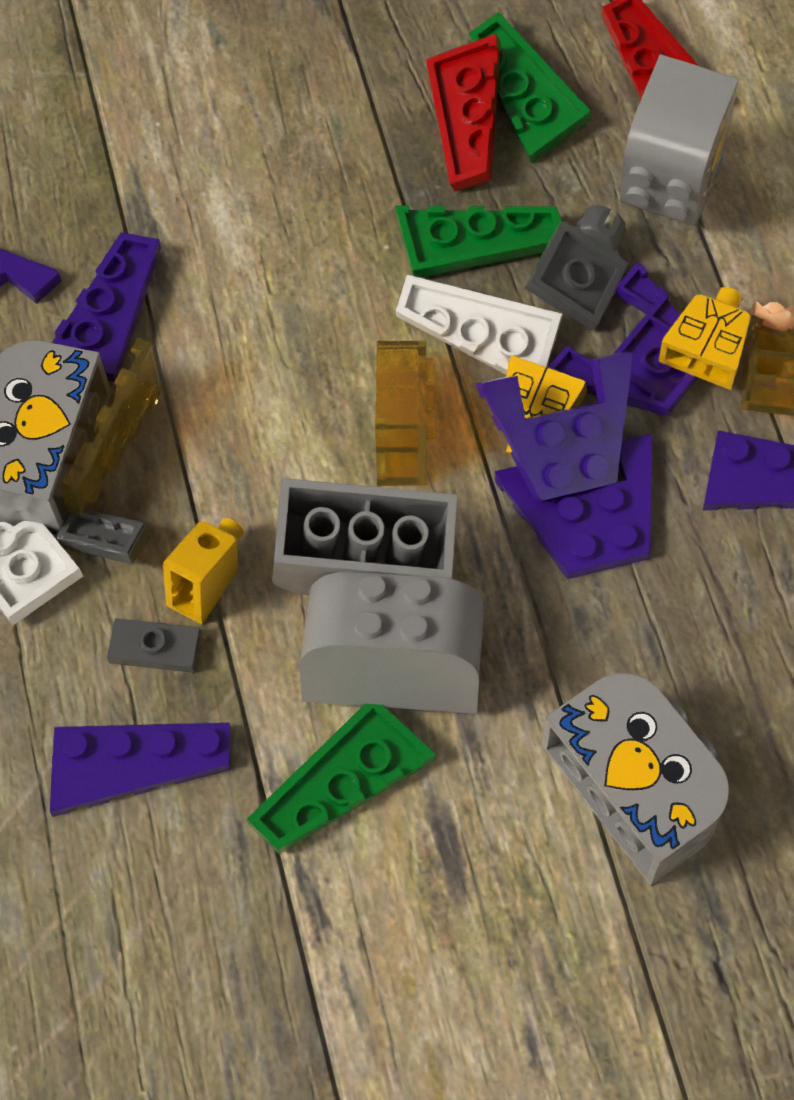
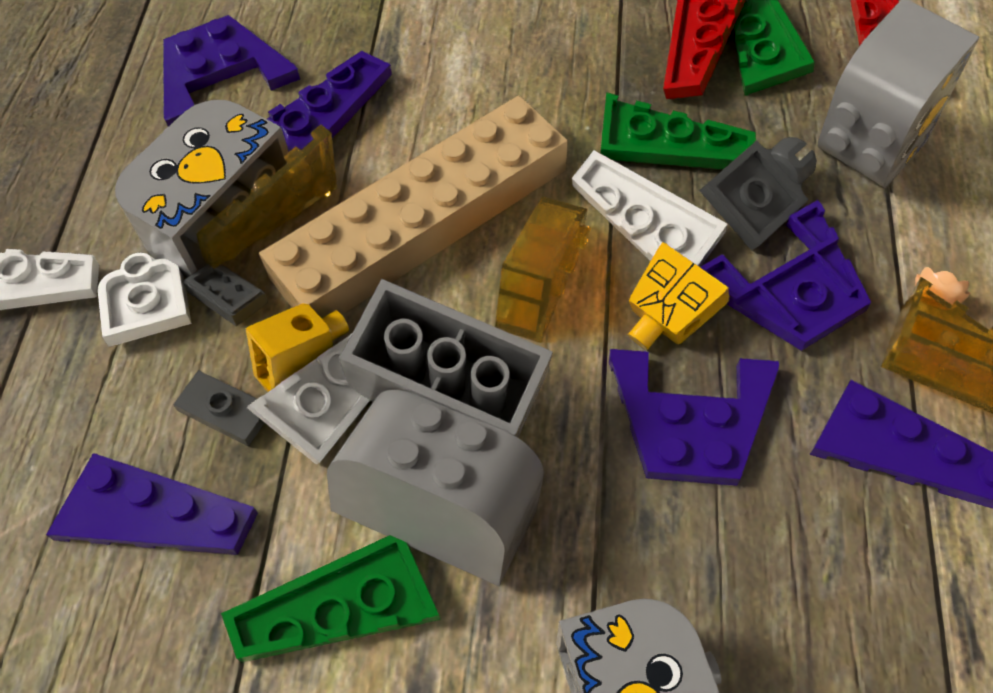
camera: 20 degrees right, 5 degrees down
(247, 606) = (312, 405): none -> white wing
(257, 391) = (416, 210): none -> tan brick
(567, 447) = (692, 347): dark purple wing -> none
(708, 338) = (868, 286): yellow torso -> none

